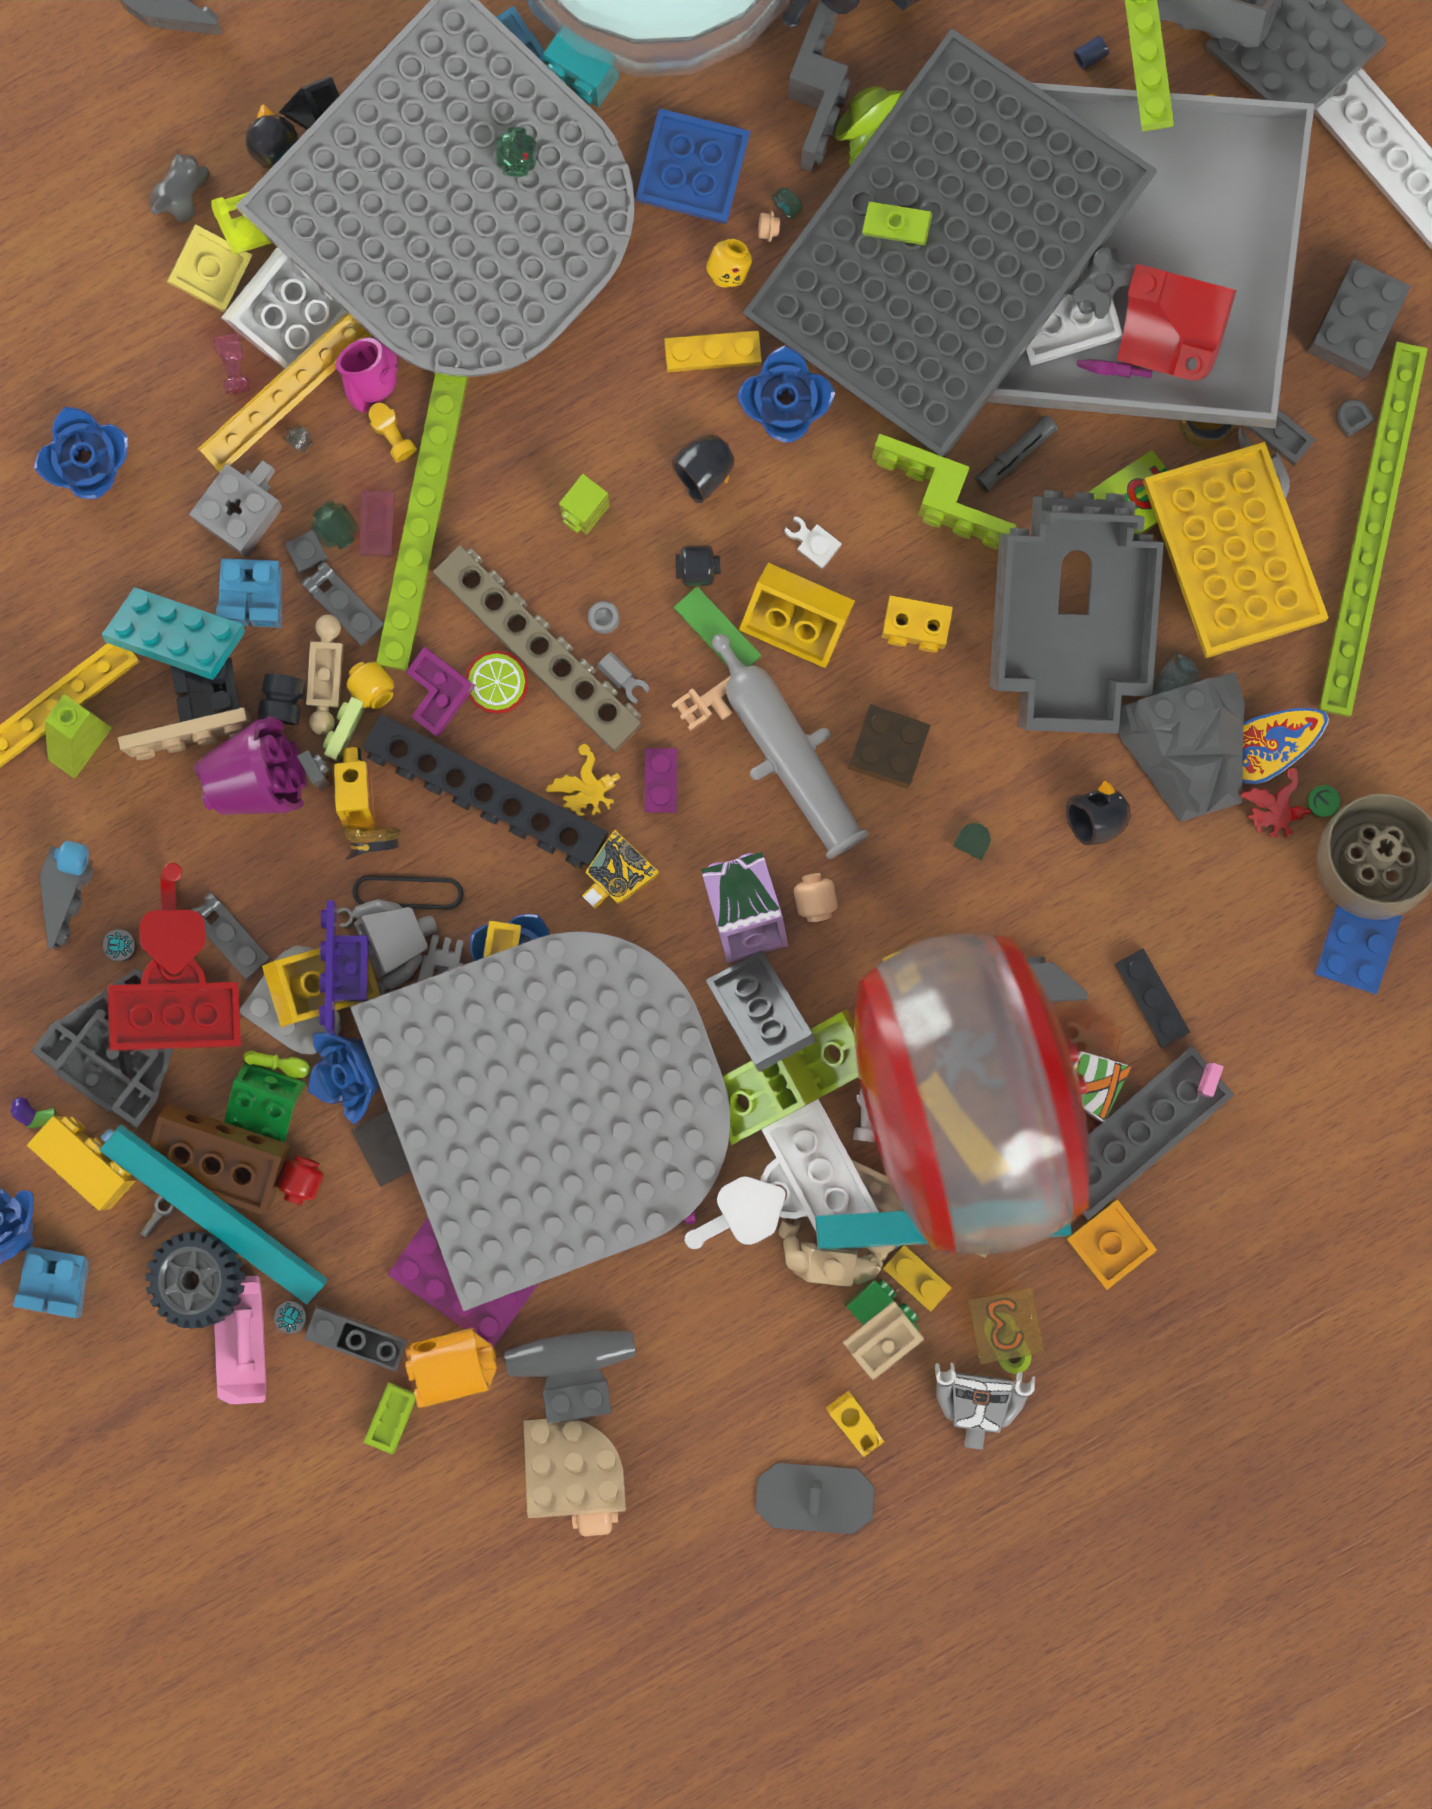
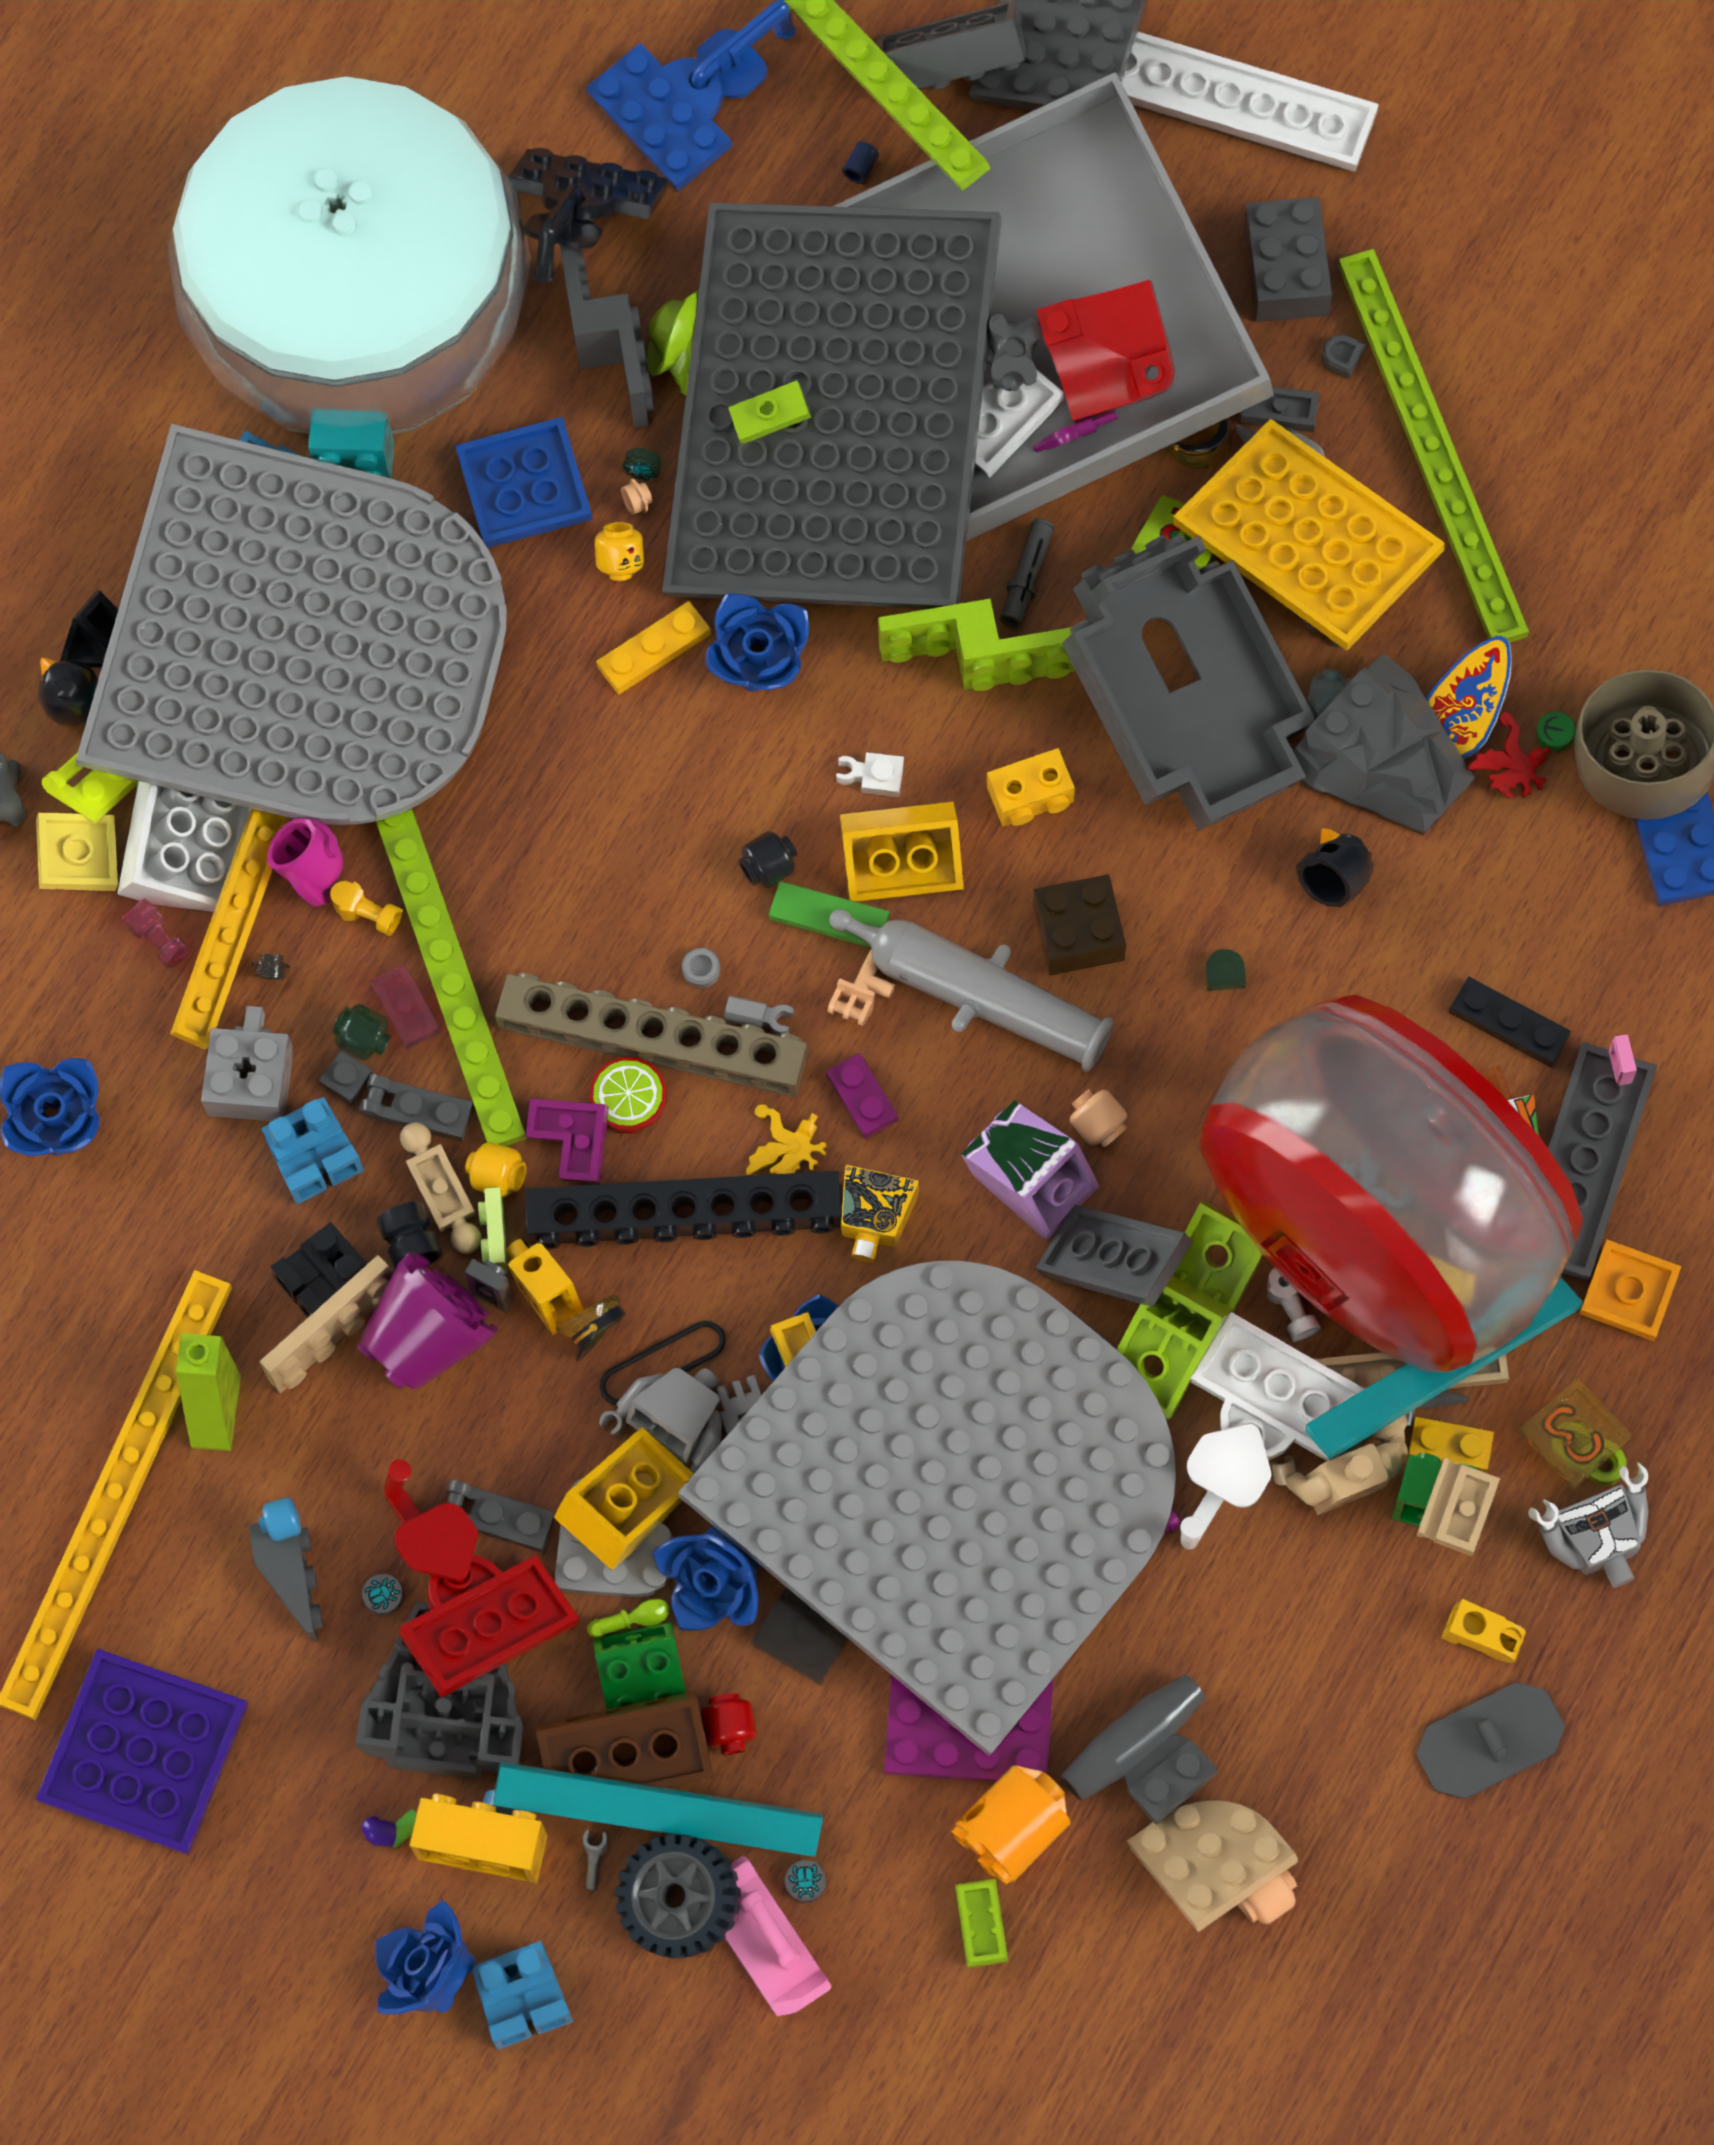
camera: 25 degrees left, 15 degrees down
(173, 633) = (254, 1230): teal plate -> none
(345, 968) = (647, 1459): dark purple bracket -> none
(355, 1338) = (890, 1856): dark grey slope -> none
(516, 152) = (337, 554): clear green head -> none
(583, 505) = (614, 862): lime brick -> none
(703, 466) = (711, 750): black piece -> none

